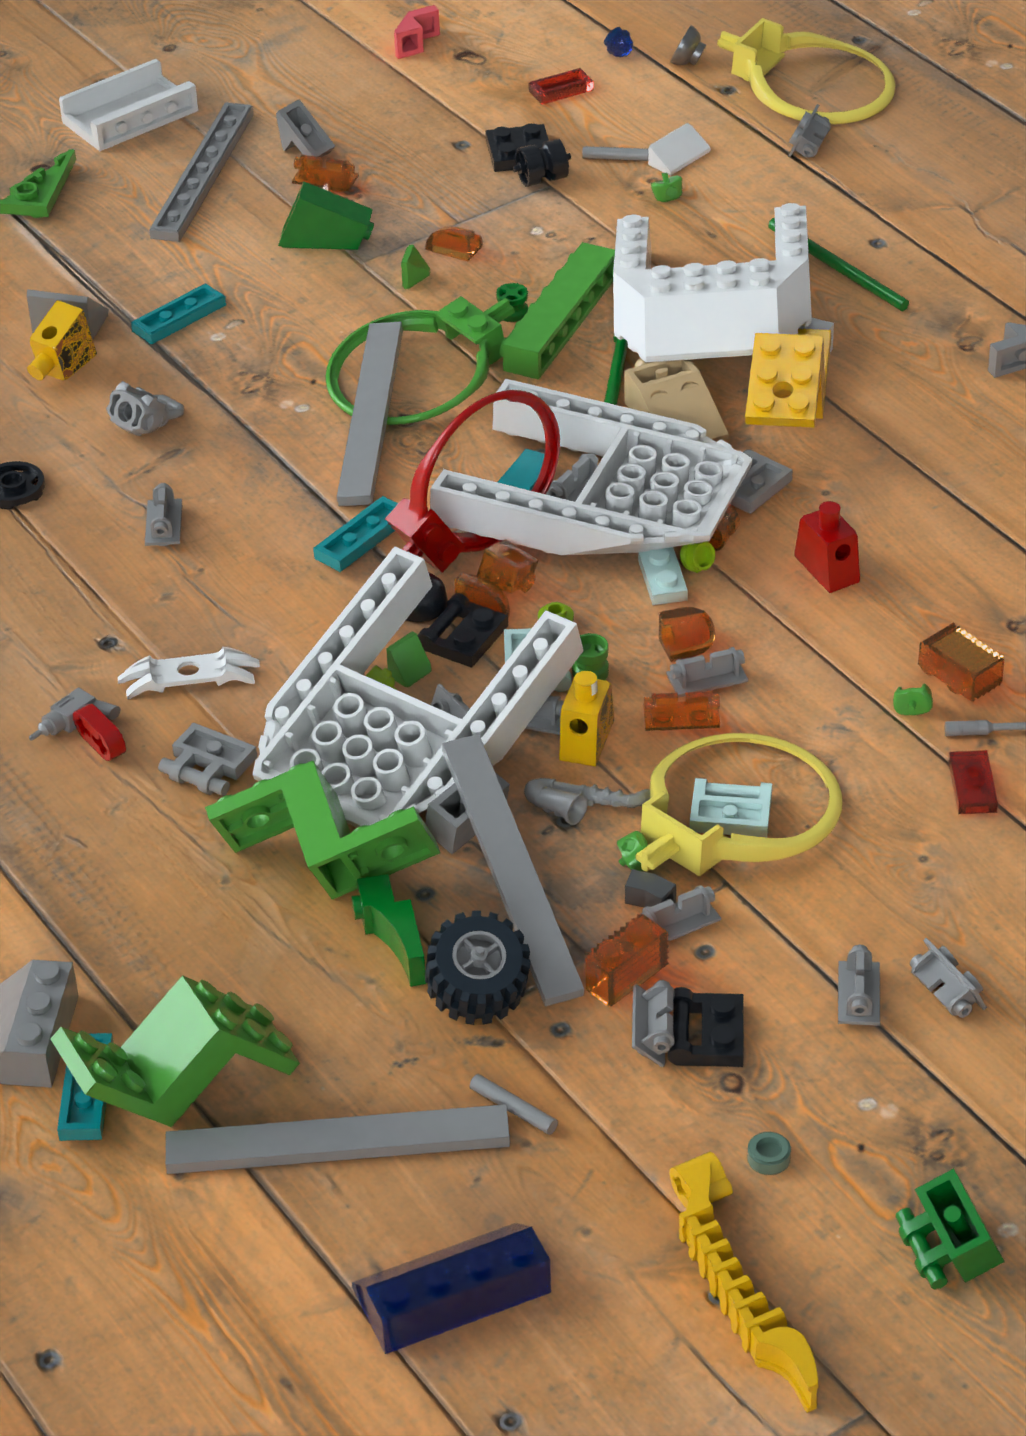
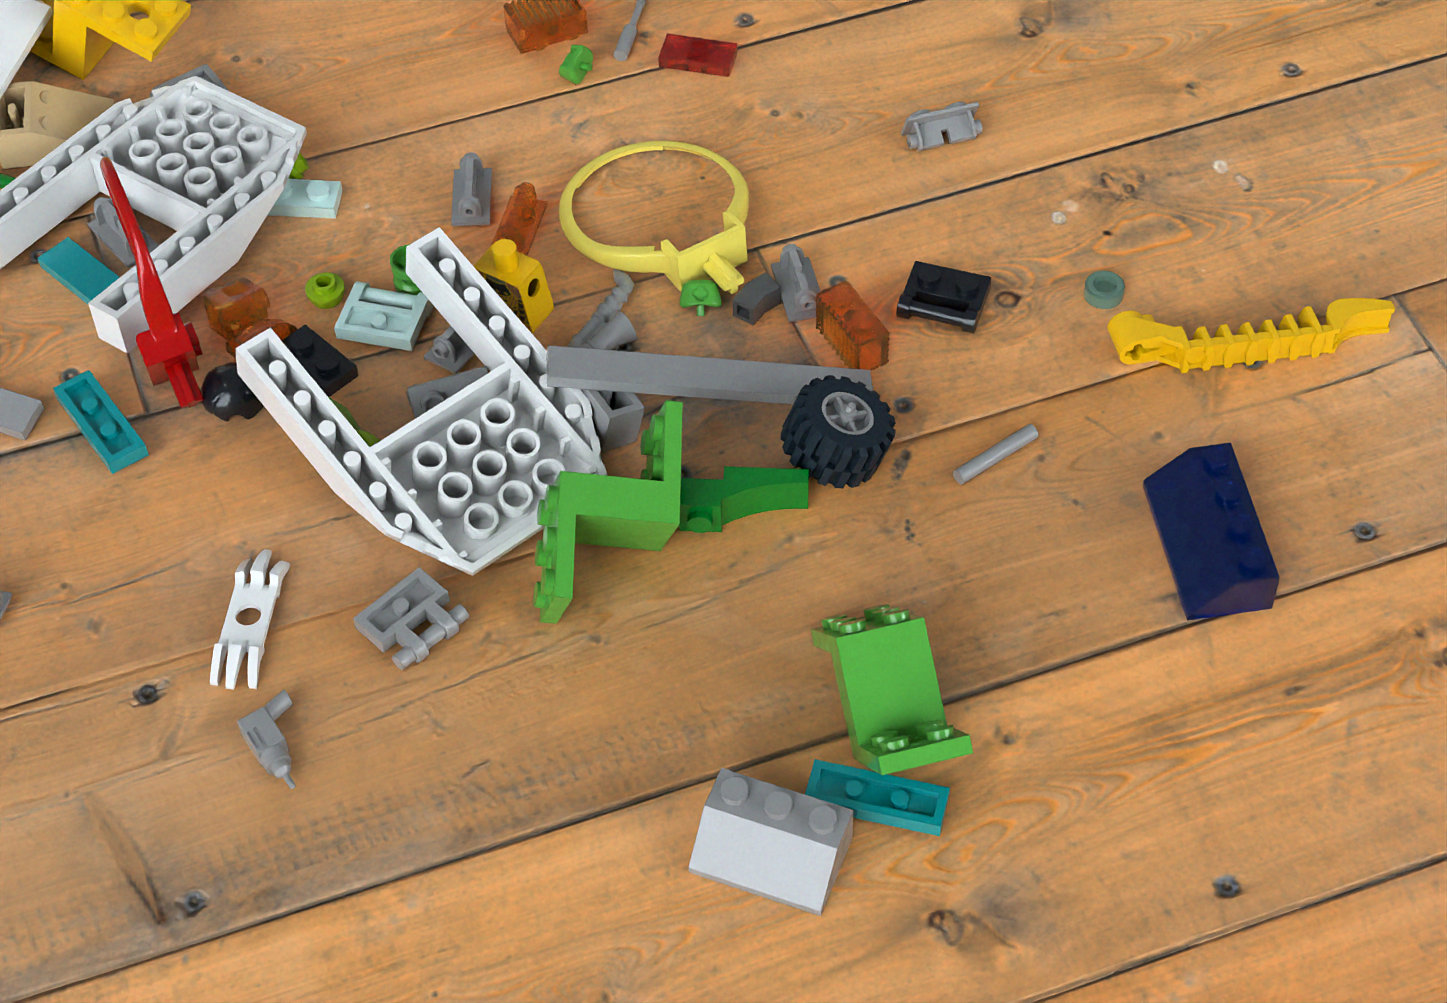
camera: 75 degrees left, 10 degrees up
(99, 732) = (320, 713): red beam -> none
(337, 1139) = (1003, 602): light grey tile -> none
(652, 1022) = (919, 322): light grey hinge -> none
(685, 632) = (407, 199): clear orange brick -> none
(732, 806) = (677, 221): light aqua plate -> none
(828, 547) = (345, 61): red torso -> none
(859, 988) = (944, 188): light grey hinge -> none
(958, 1226) = (1238, 180): green brick -> none

